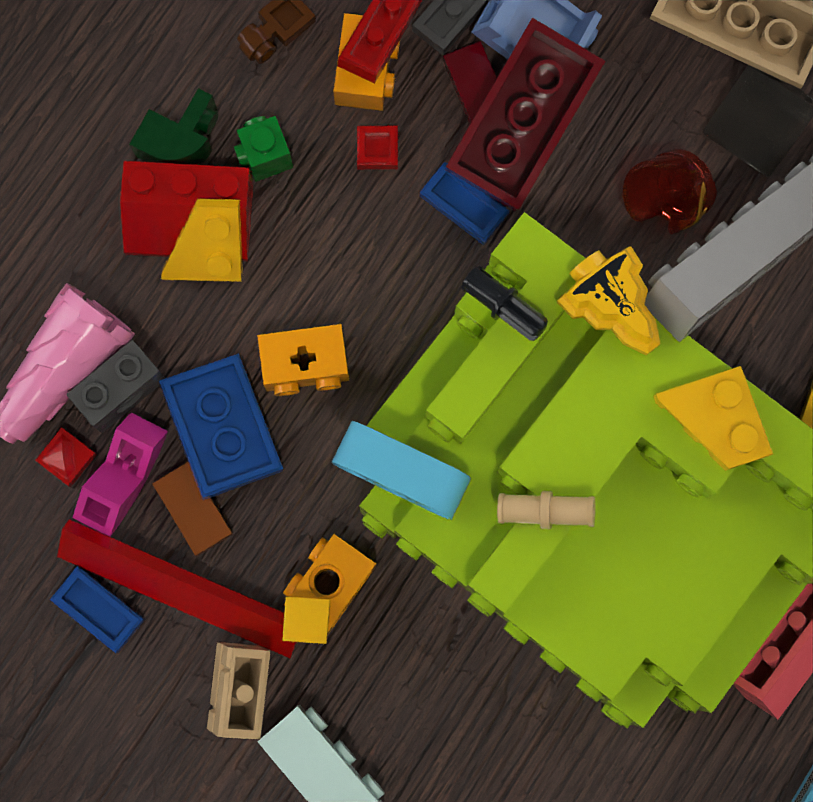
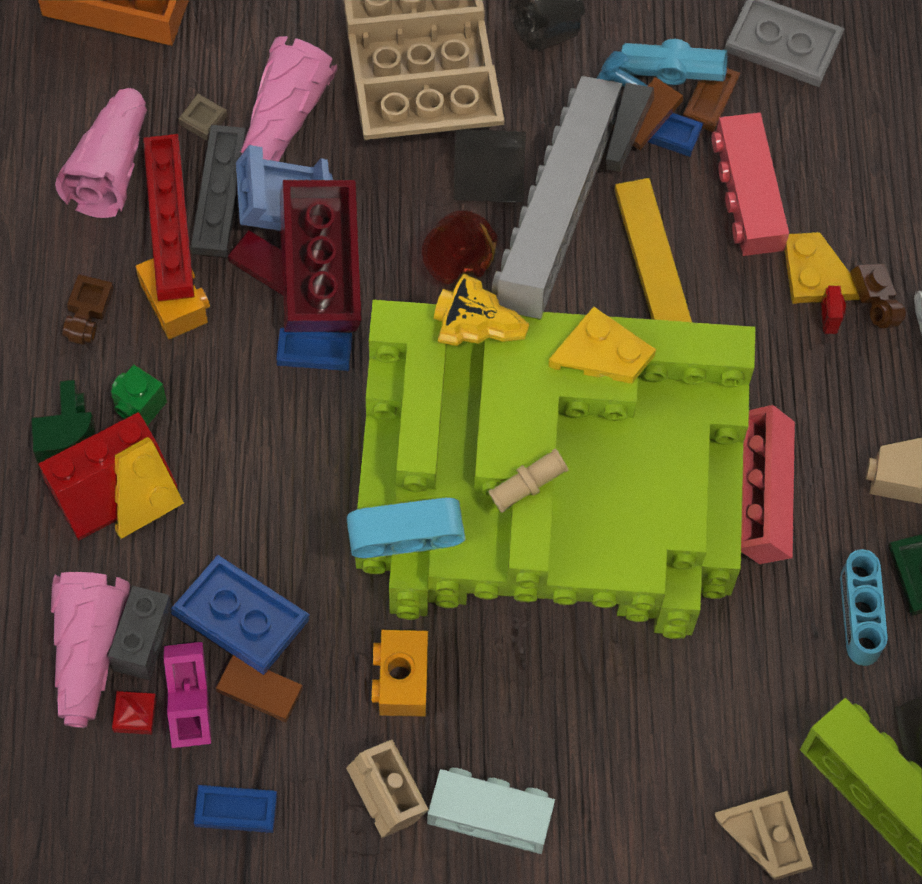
camera: 35 degrees left, 15 degrees down
(174, 587) = (286, 749): red tile -> none
(282, 349) = (276, 509): light orange brick -> none
(306, 620) = (404, 700): yellow tile -> none
(377, 147) = (222, 349): red tile -> none
(504, 303) = (403, 363): black axle -> none

